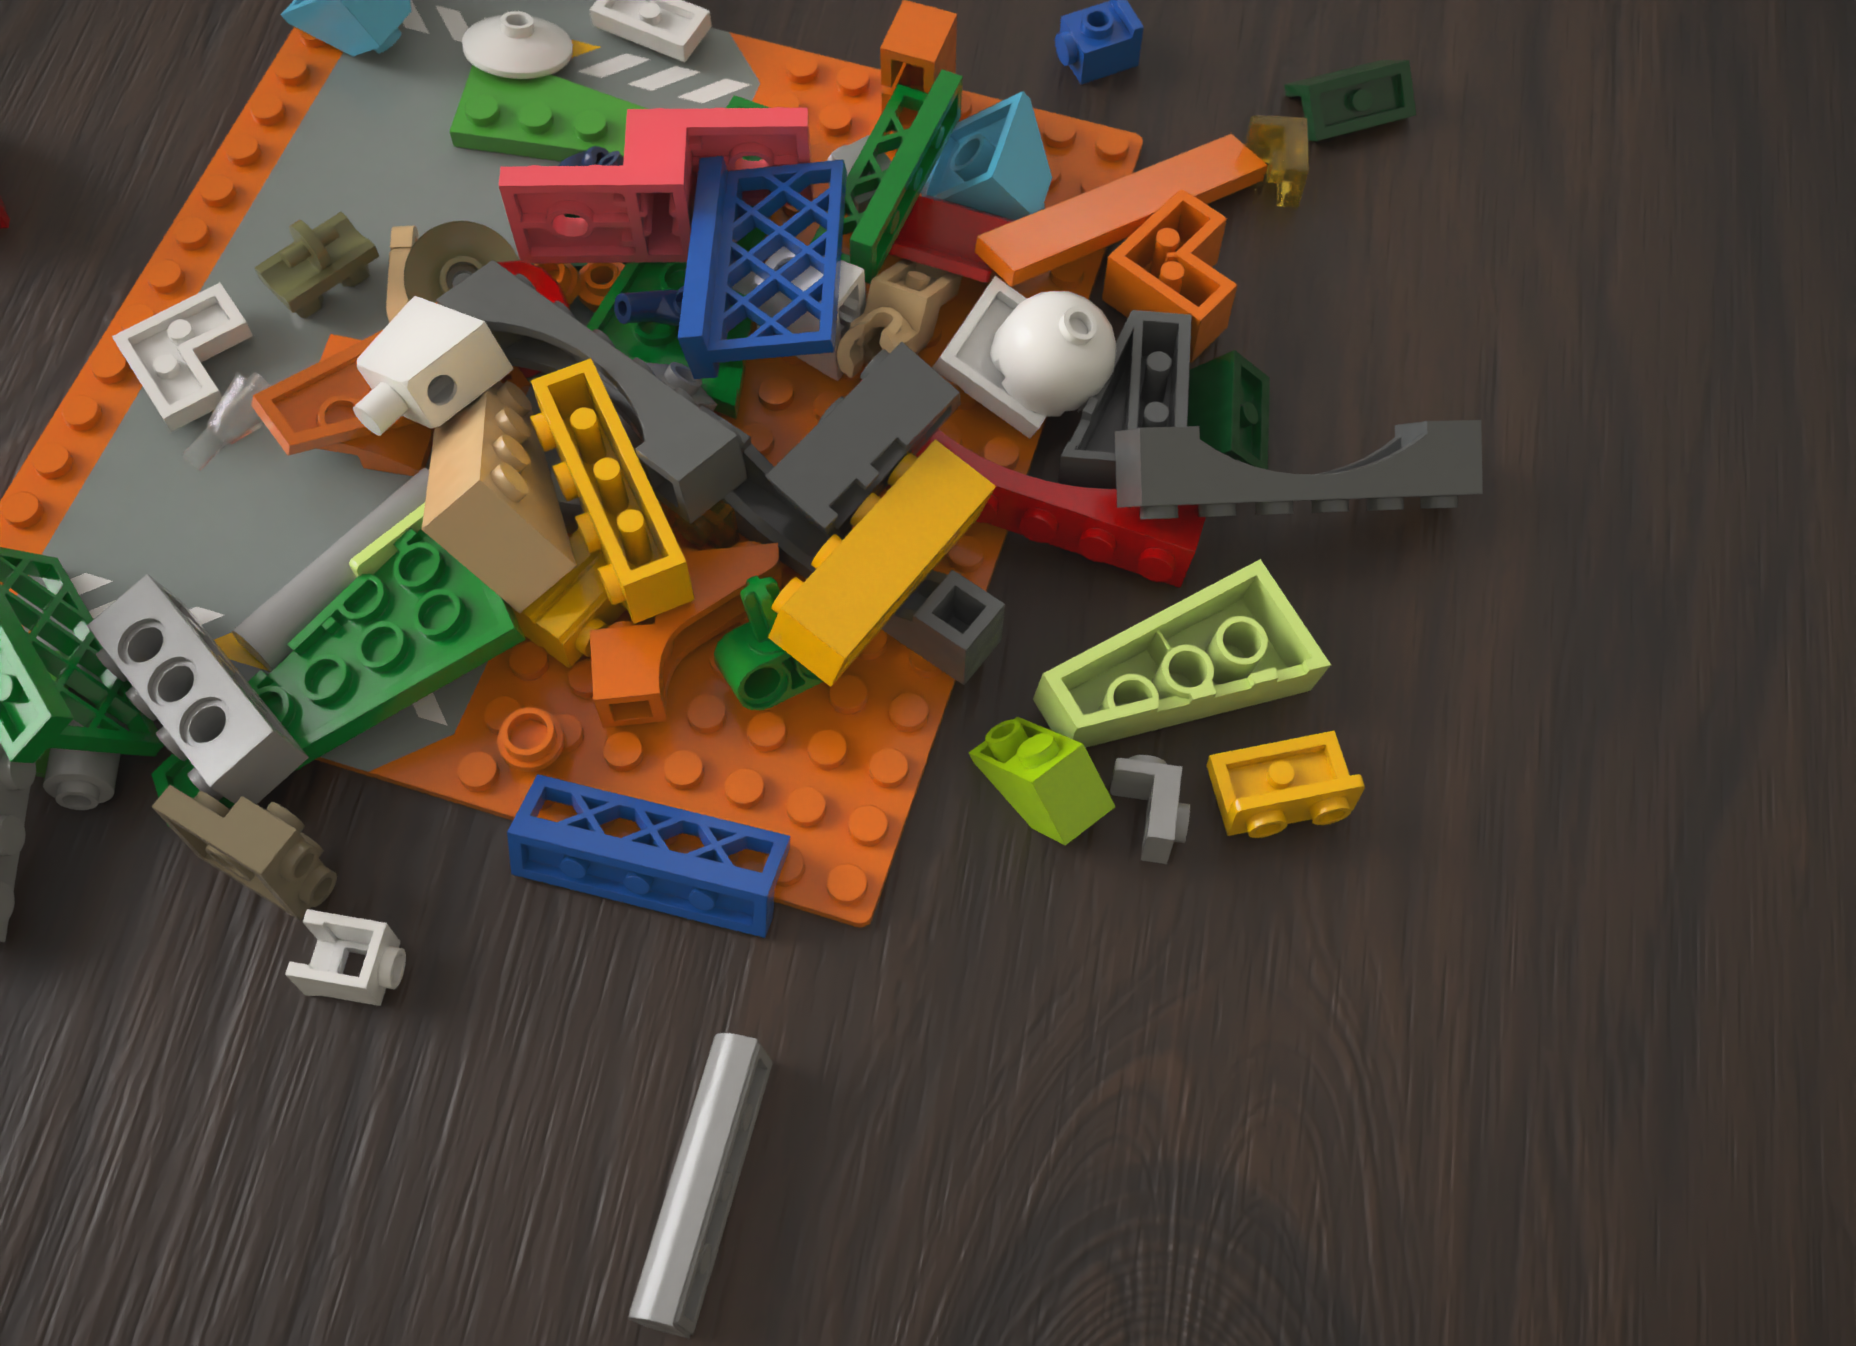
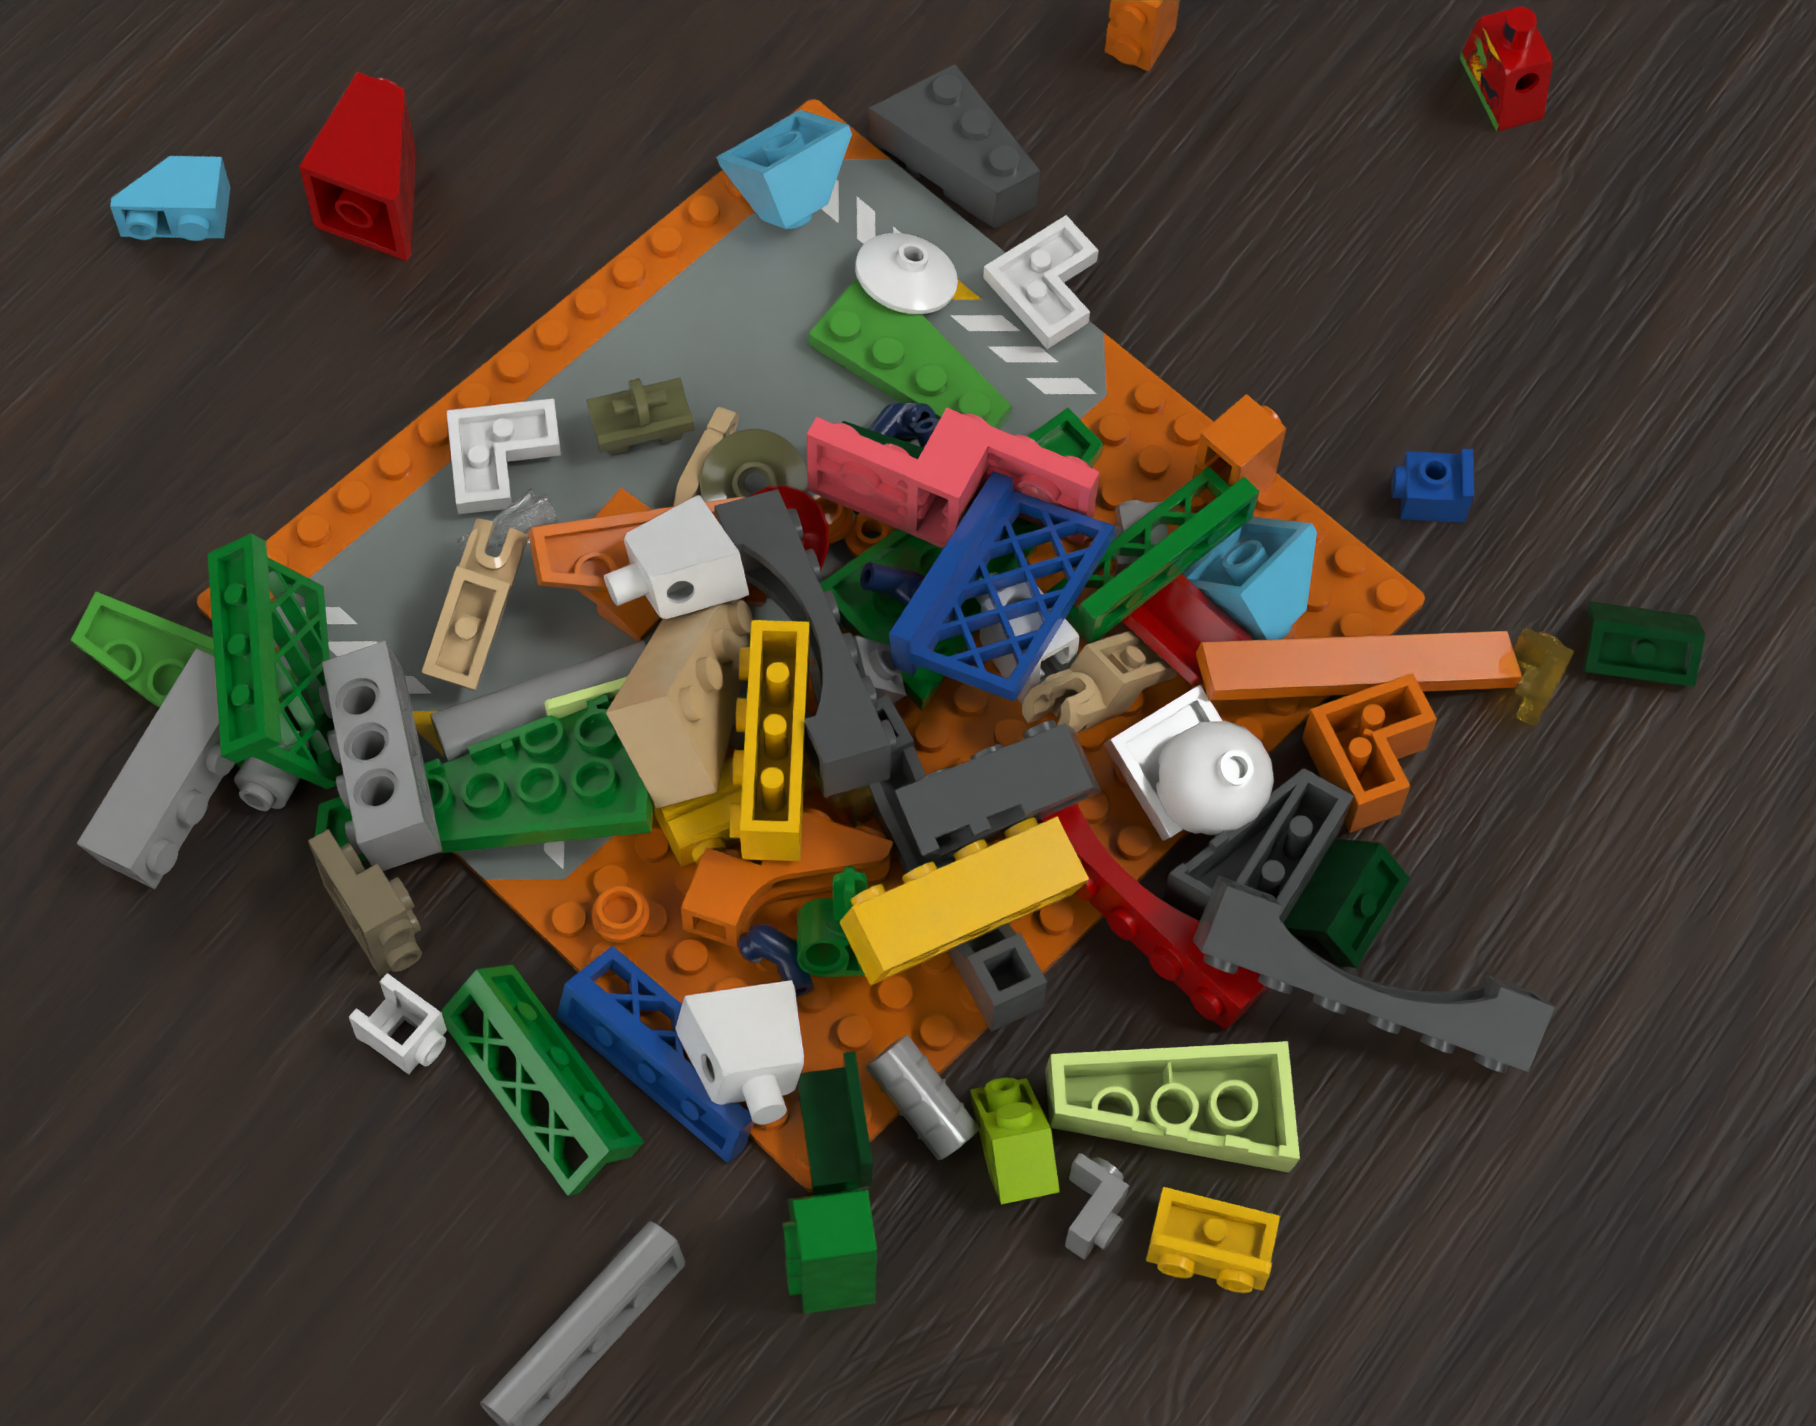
camera: 25 degrees right, 0 degrees up
(229, 506) = (474, 607): none -> tan plate
(532, 922) = (553, 1065): none -> green fence
(717, 701) = (769, 943): none -> dark blue arm
(729, 807) = (745, 1045): none -> white torso
(862, 846) = (835, 1128): none -> dark green panel
(926, 966) = (831, 1250): none -> green wedge
(932, 778) = (922, 1097): none -> light grey axle

